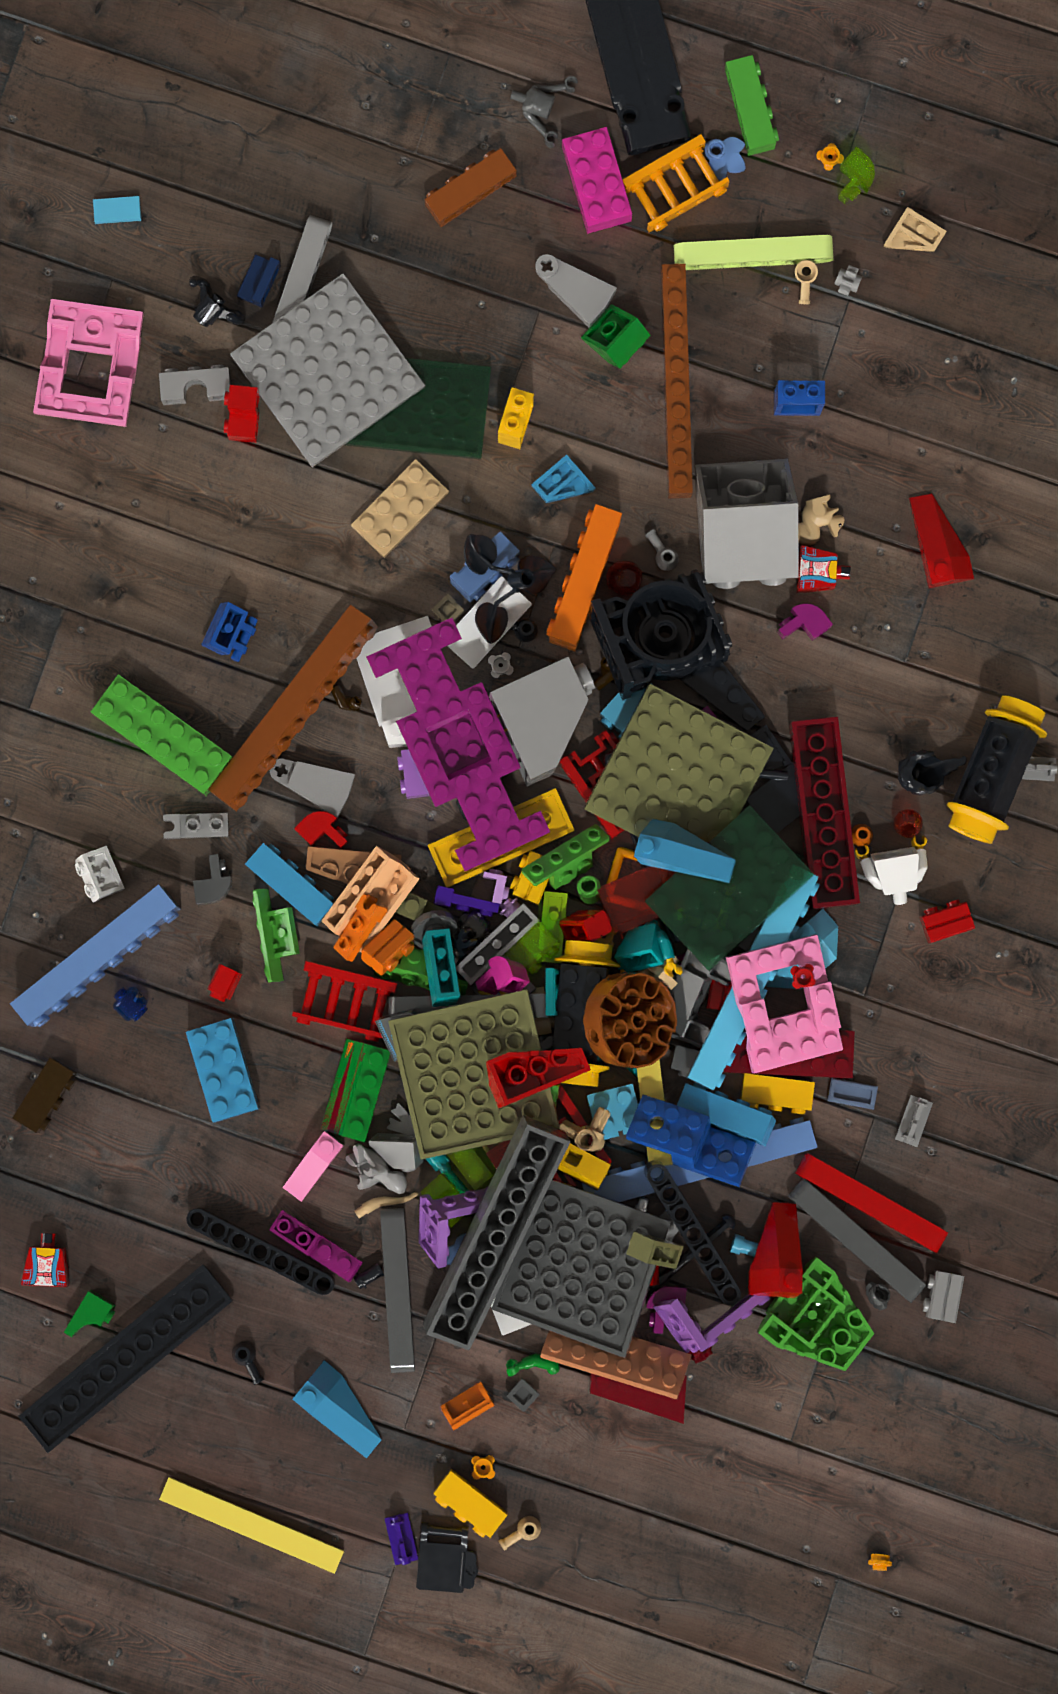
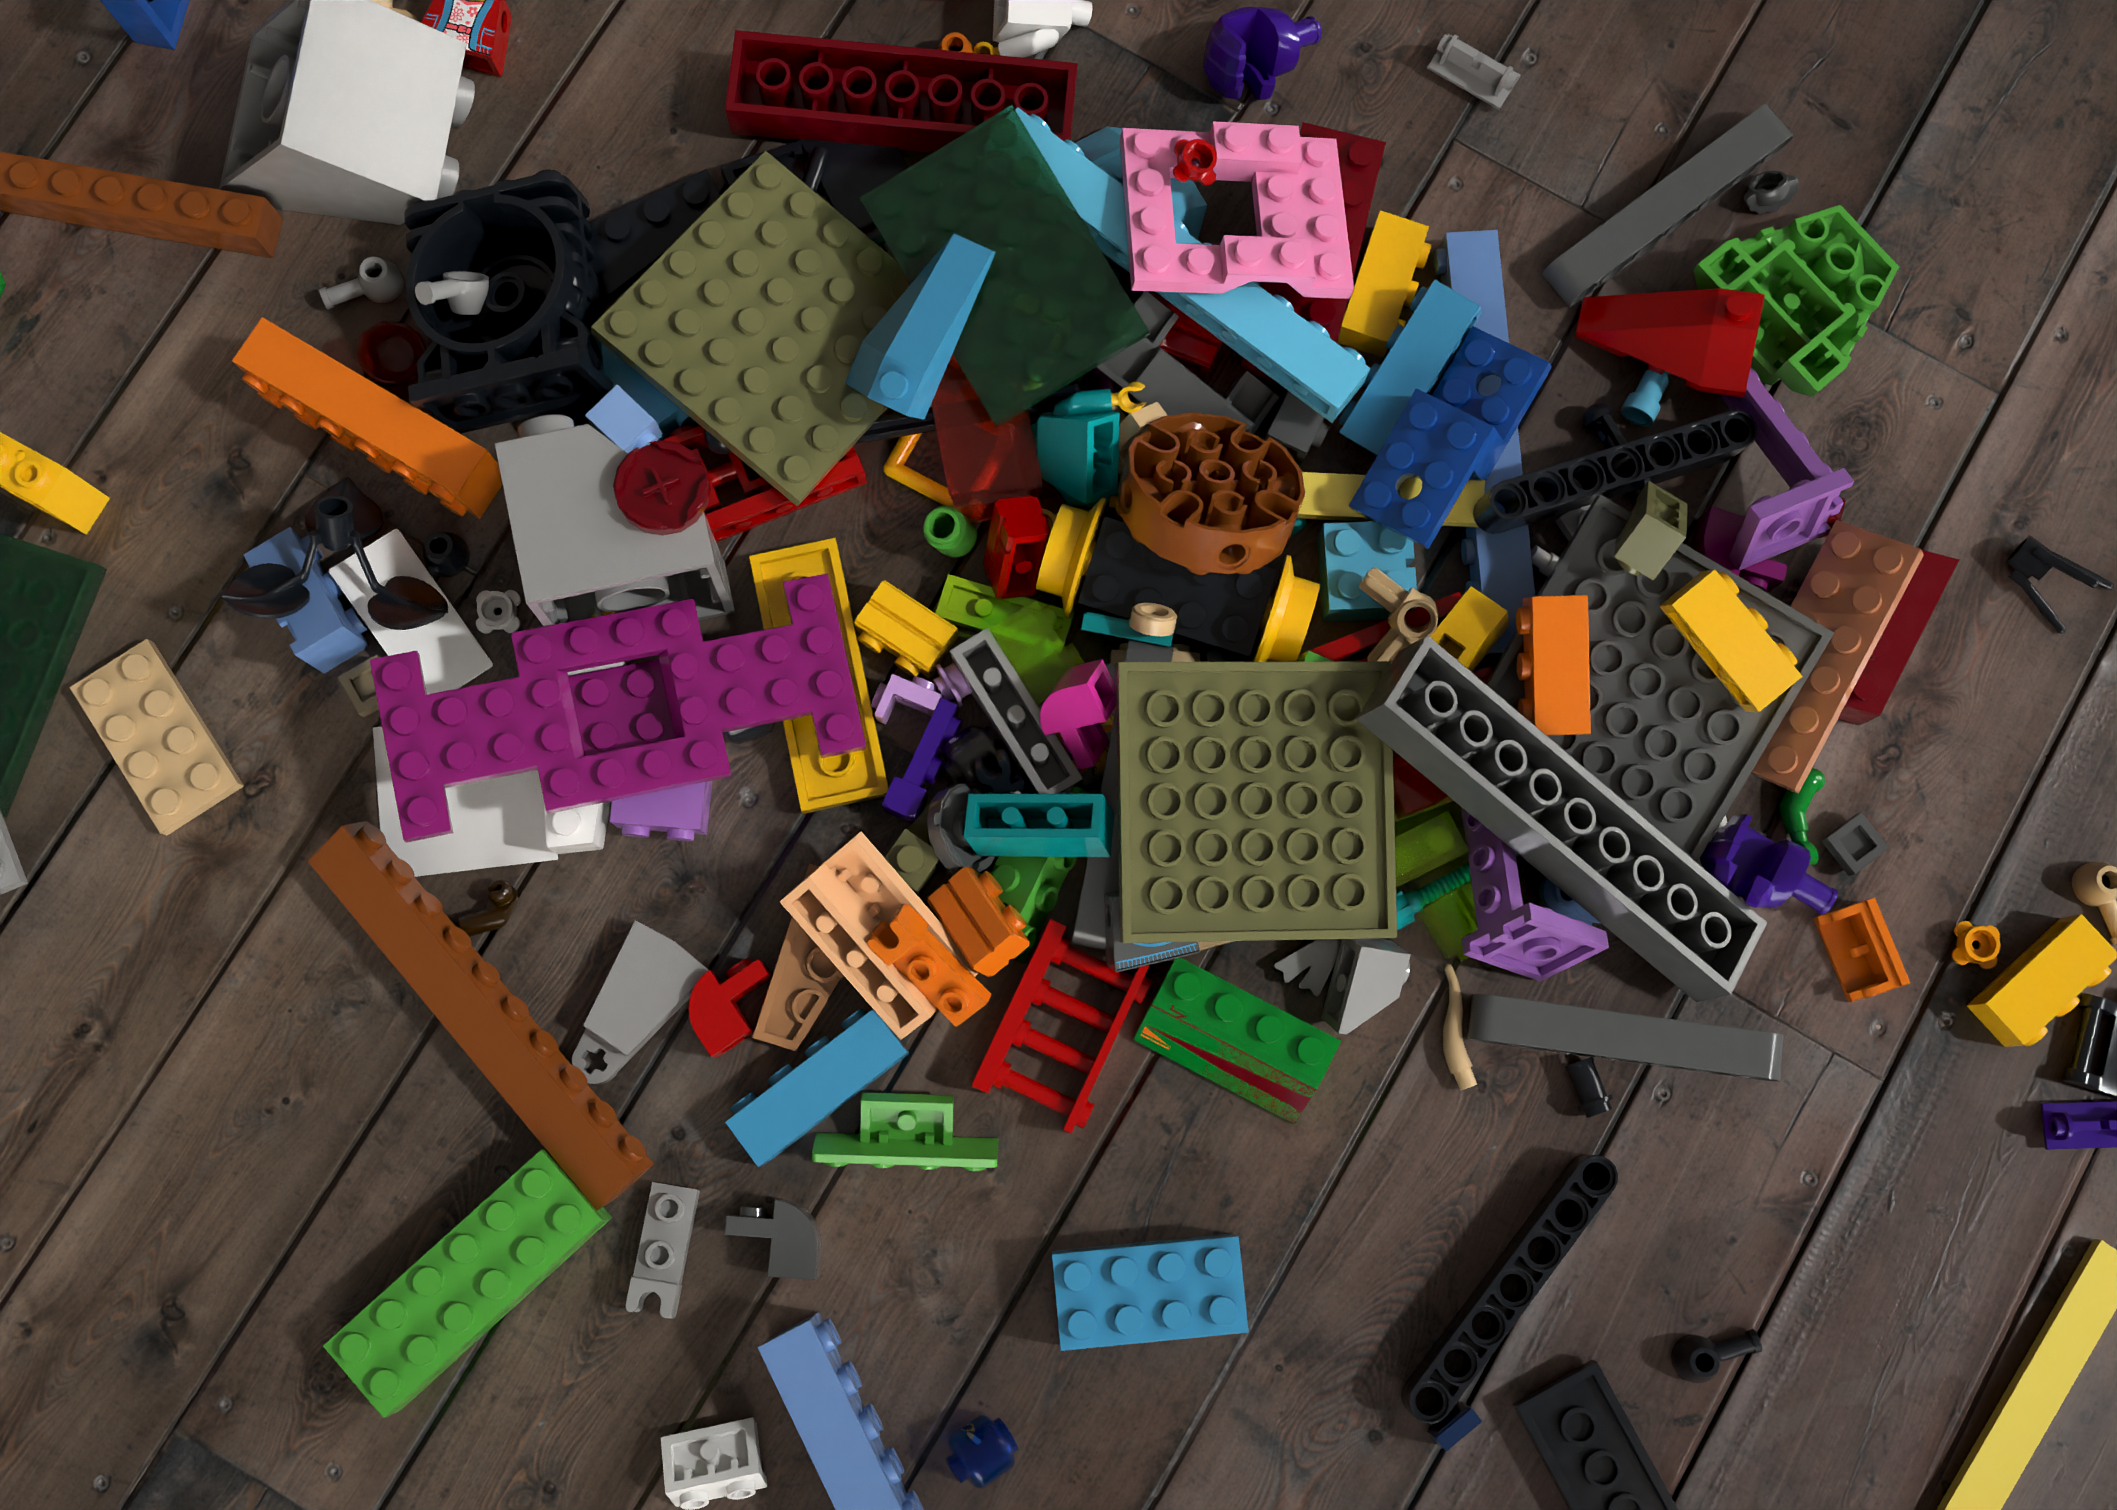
camera: 80 degrees left, 5 degrees down
(189, 1236) = (1454, 1426): none -> dark blue tile
(224, 983) = (981, 1254): red brick -> none
(225, 629) = (292, 1112): blue brick -> none
(313, 1165) = (1362, 1149): bright pink slope -> none
(316, 1245) = (1517, 1176): magenta slope -> none
(336, 1407) = (1828, 1200): dark azure wedge -> none
(375, 1169) = (1390, 1035): light grey animal -> none
(497, 1344) = (1763, 870): none -> dark purple piece
(526, 1073) = (1281, 691): red wedge -> none
(556, 1003) = (1153, 619): none -> tan tile
(562, 482) = (188, 430): dark azure wing -> none
(562, 744) = (662, 487): none -> dark red tile
(567, 859) = (885, 558): bright green bracket -> none
(575, 1213) = (1555, 663): none -> orange brick
(606, 710) = (623, 421): none -> light blue brick
(607, 1302) = (1732, 640): none -> yellow brick
(659, 610) = (463, 290): none -> light grey bar
(697, 1469) = (2036, 560): none -> black plant
(808, 617) = (549, 58): magenta brick -> none
(852, 1093) = (1406, 163): sand blue tile -> none
(871, 1203) = (1605, 168): red beam -> none
(898, 998) = (1255, 47): none -> dark purple piece
(944, 1296) = (1790, 80): light grey brick -> none

